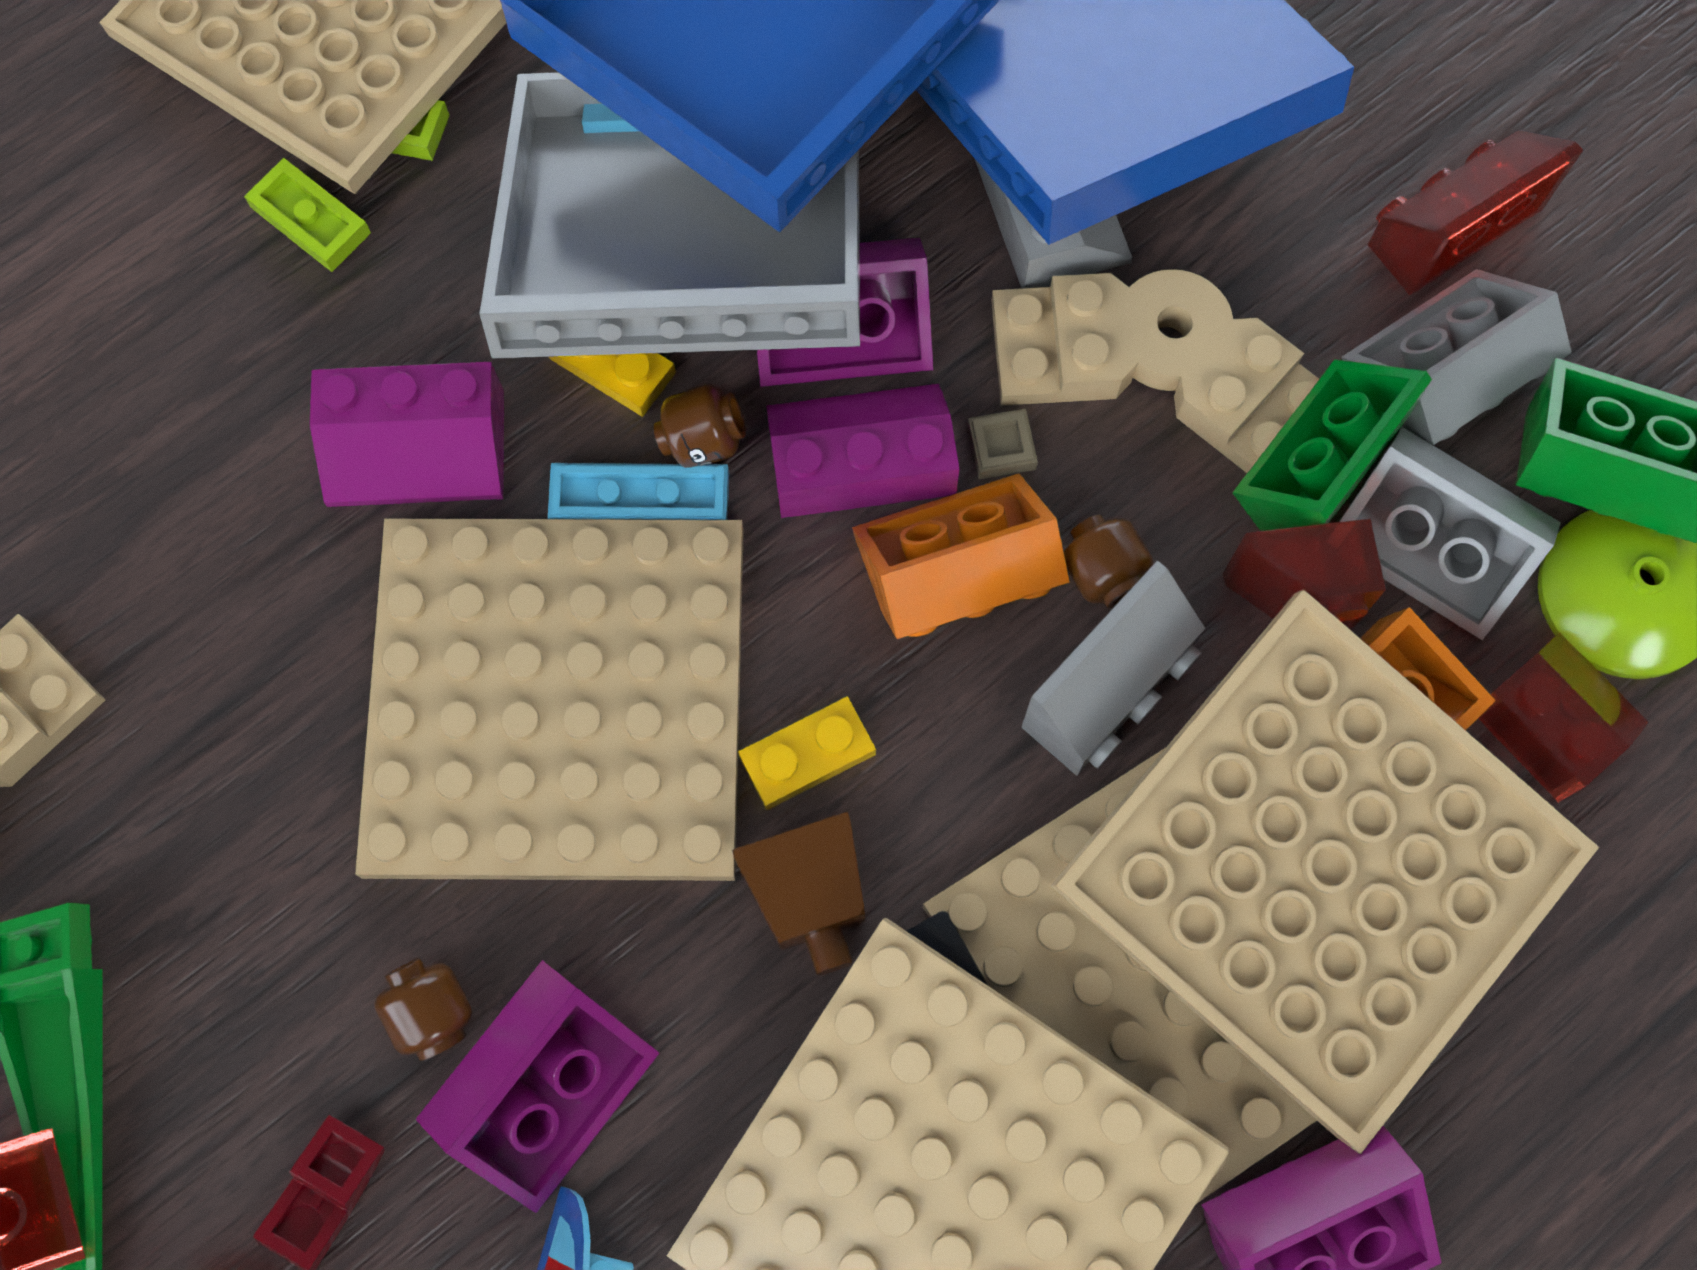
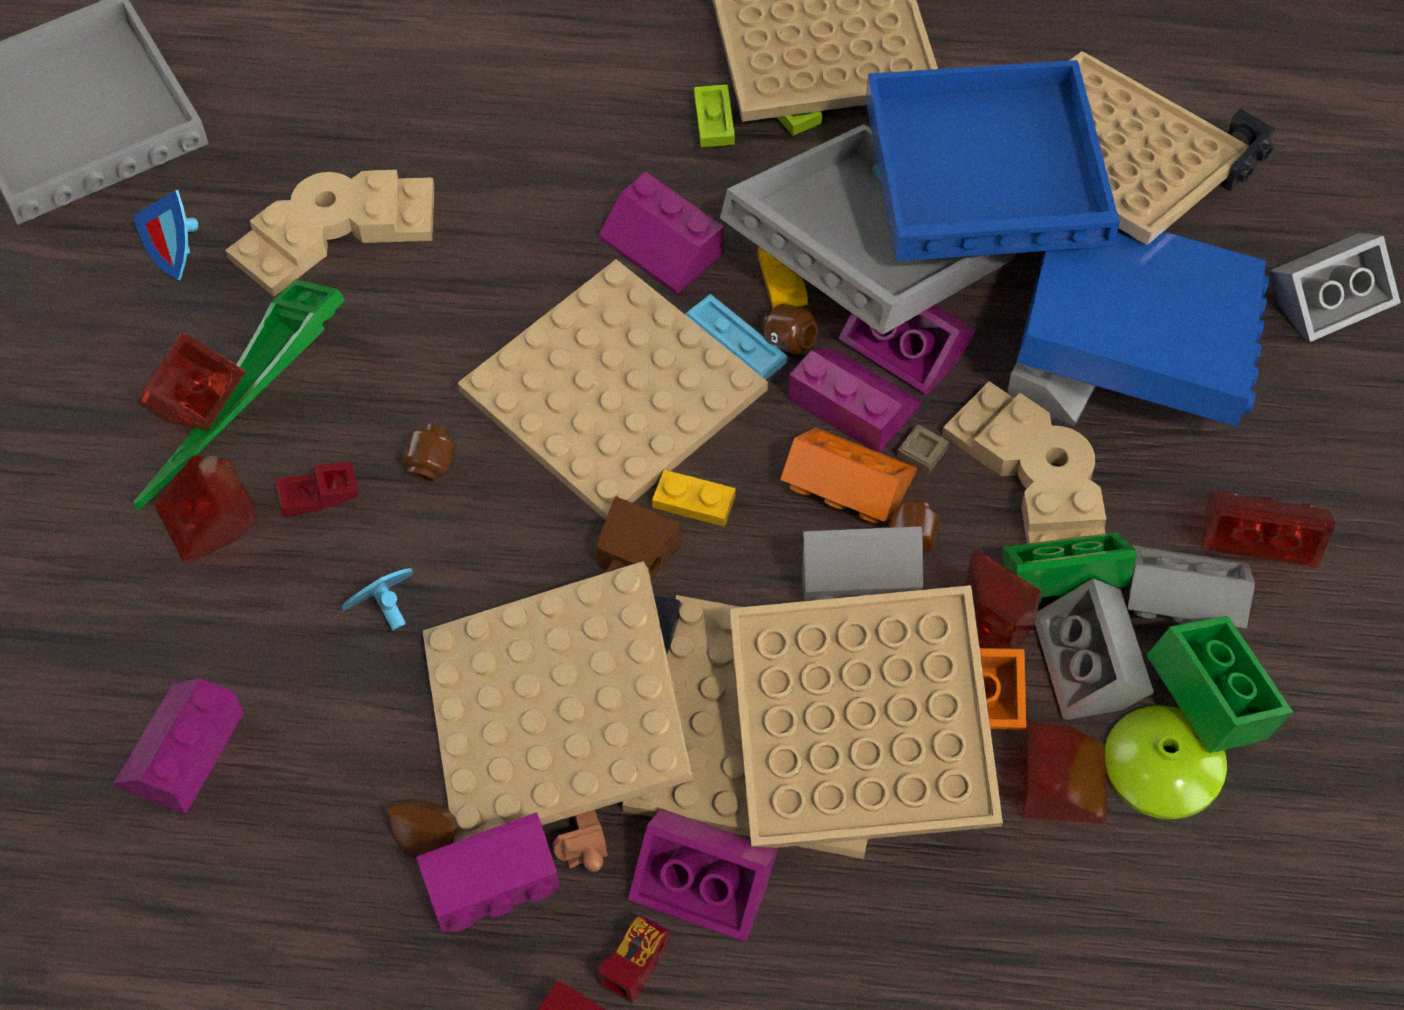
camera: 45 degrees right, 15 degrees down
(536, 1088) = (441, 523): magenta slope -> none

